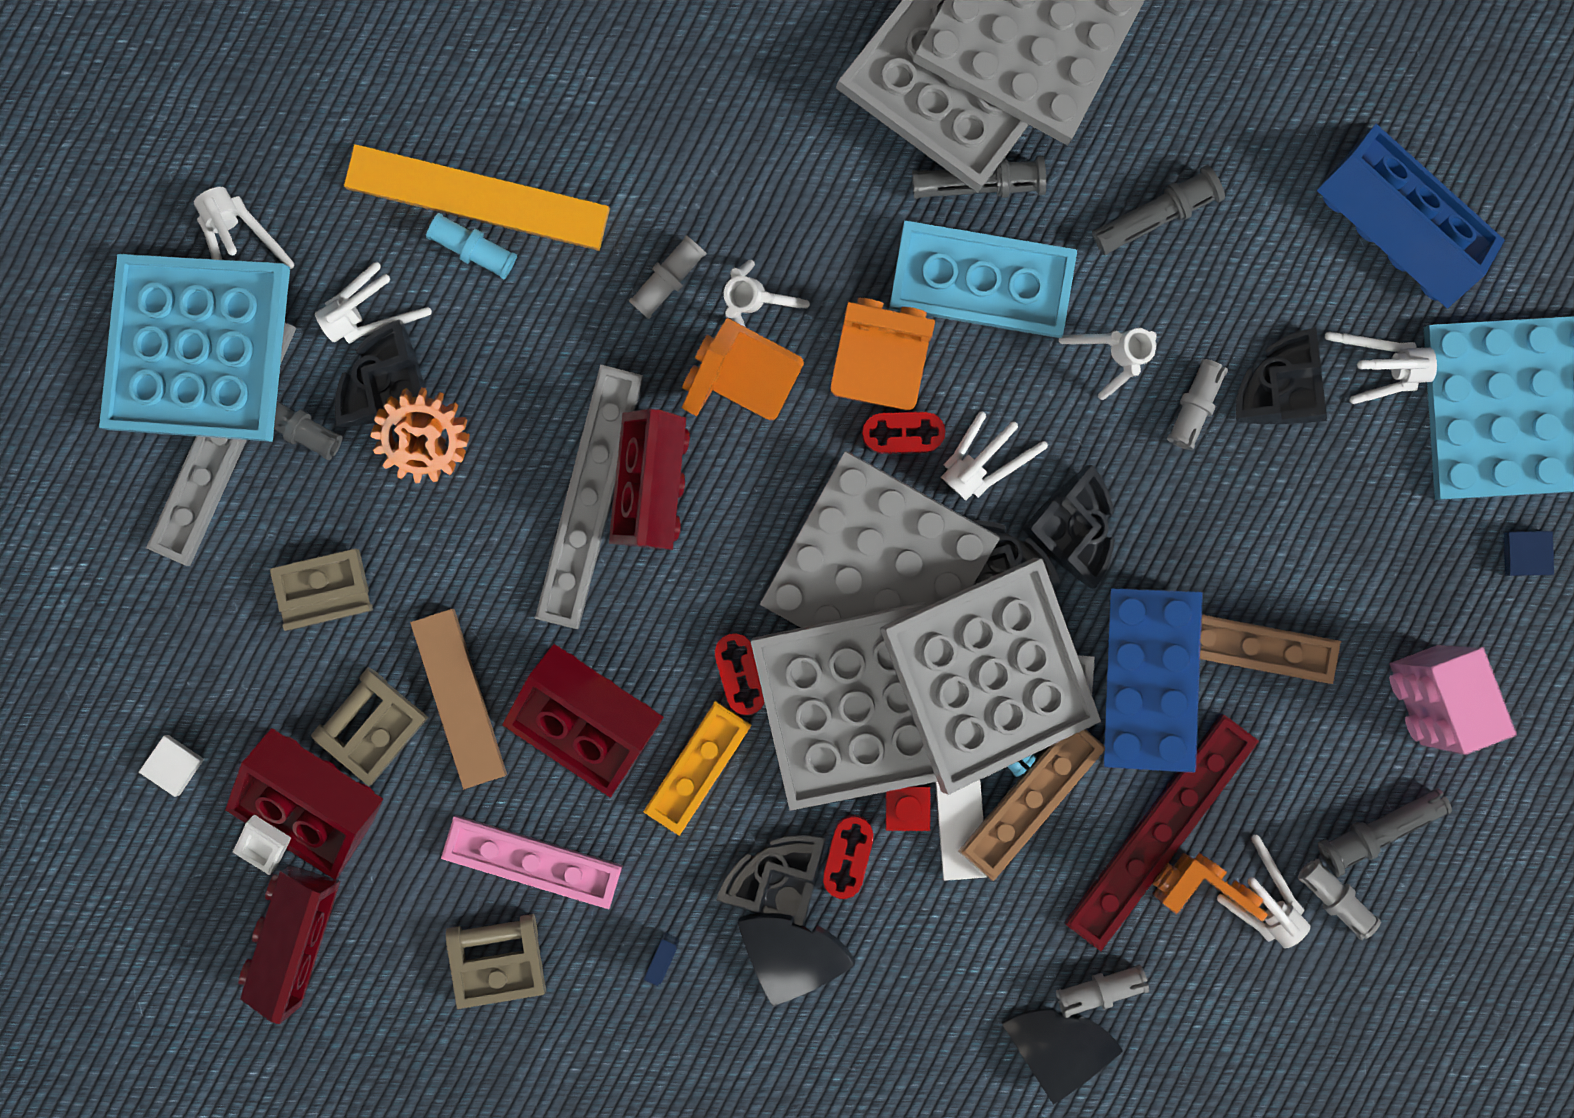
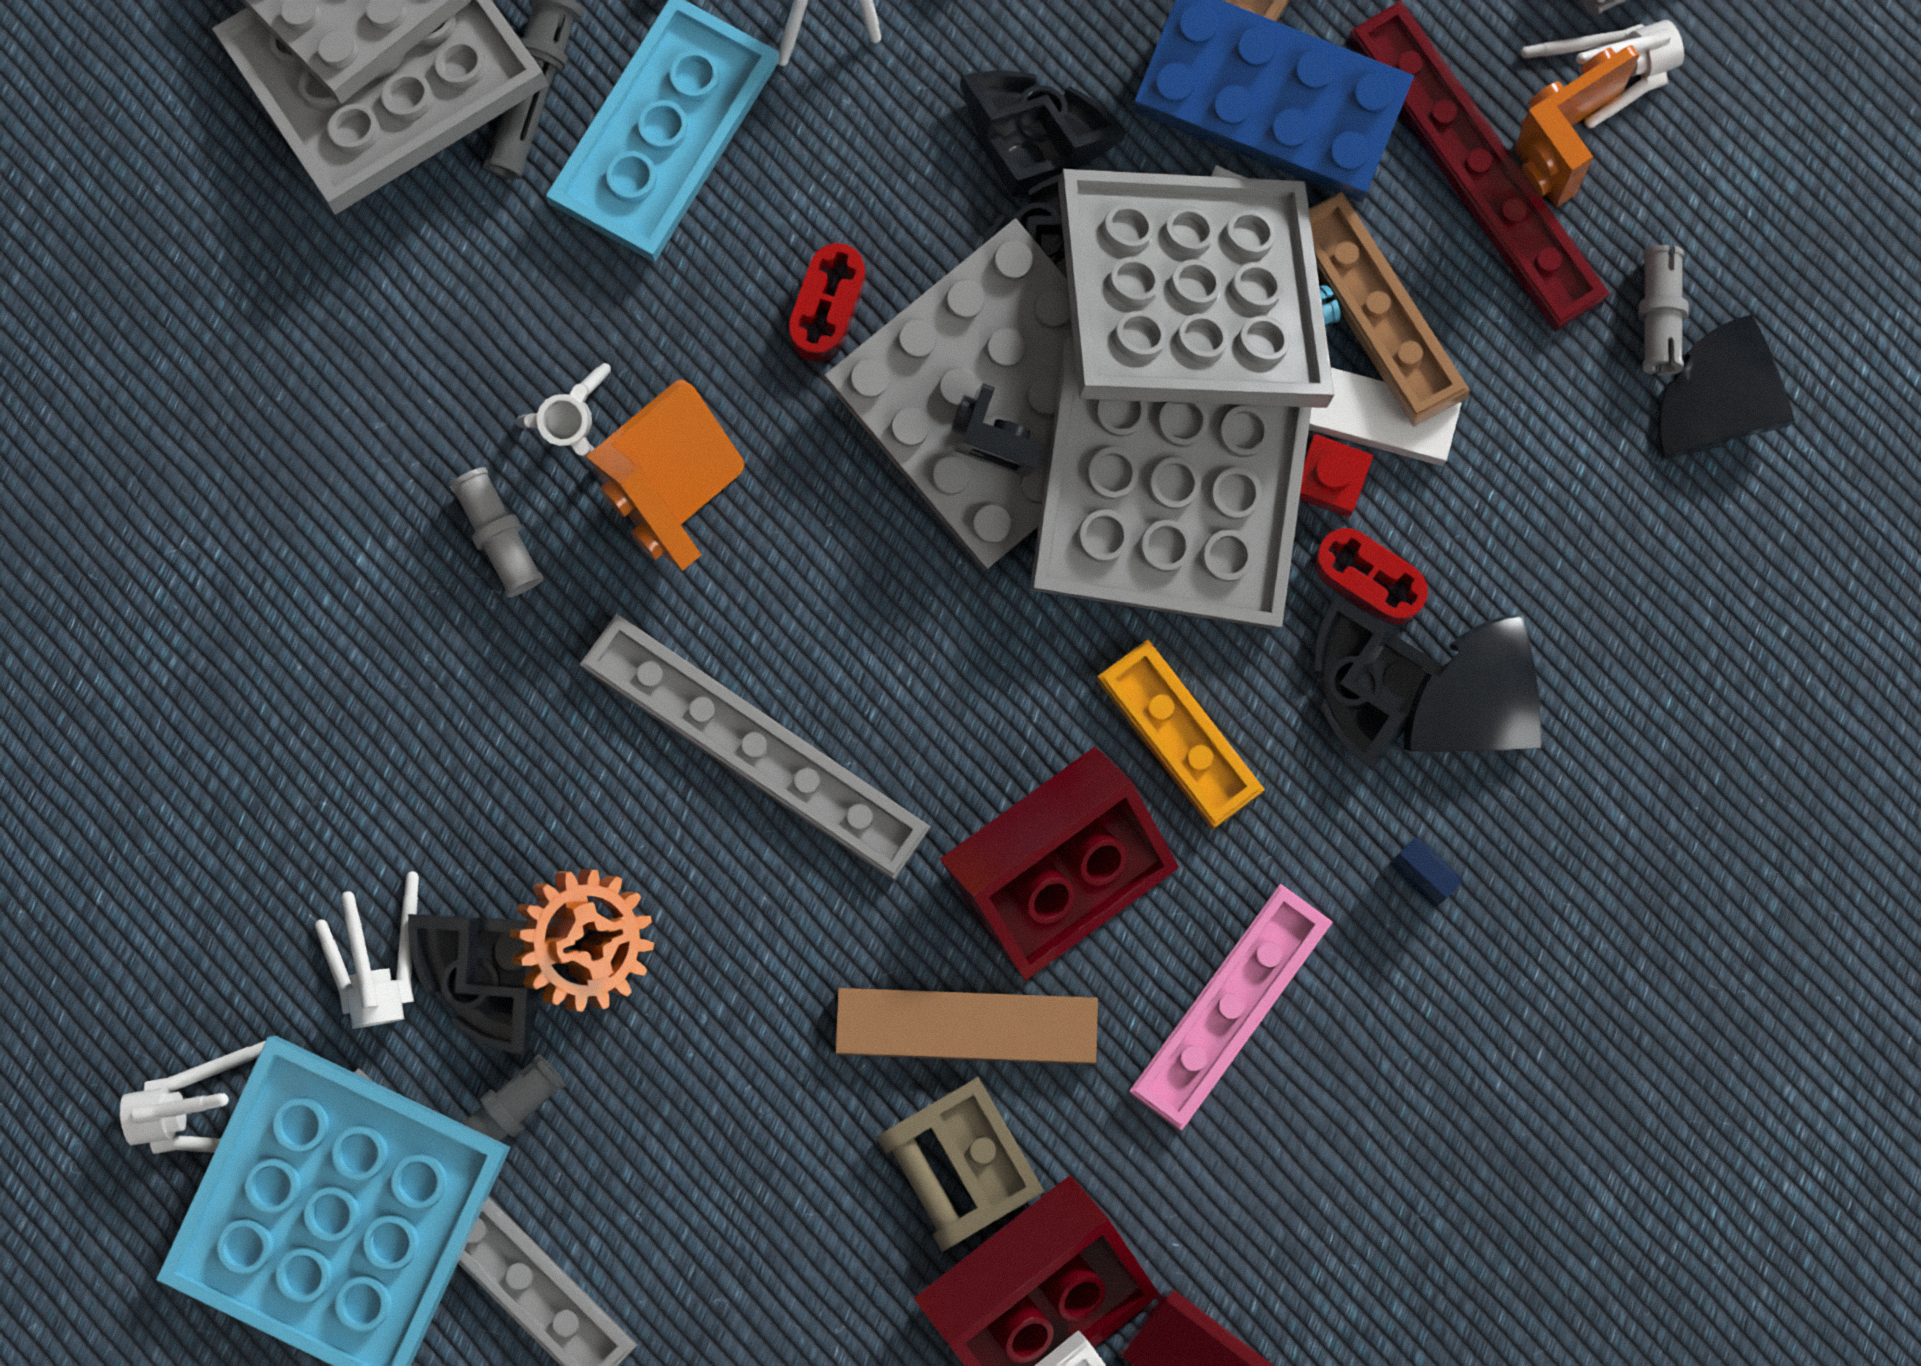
camera: 75 degrees left, 10 degrees down
(321, 589) = (743, 1161): dark tan plate -> none
(471, 246) = (347, 780): medium azure pin -> none
(477, 197) = (282, 752): light orange tile -> none
(496, 976) = (1374, 1105): dark tan plate -> none
(649, 479) = (761, 650): dark red slope -> none
(729, 675) = (1072, 614): red beam -> none
(837, 587) = (1000, 445): none -> black bracket
(881, 354) = (710, 288): orange bracket -> none
(967, 474) = (914, 240): white plant -> none

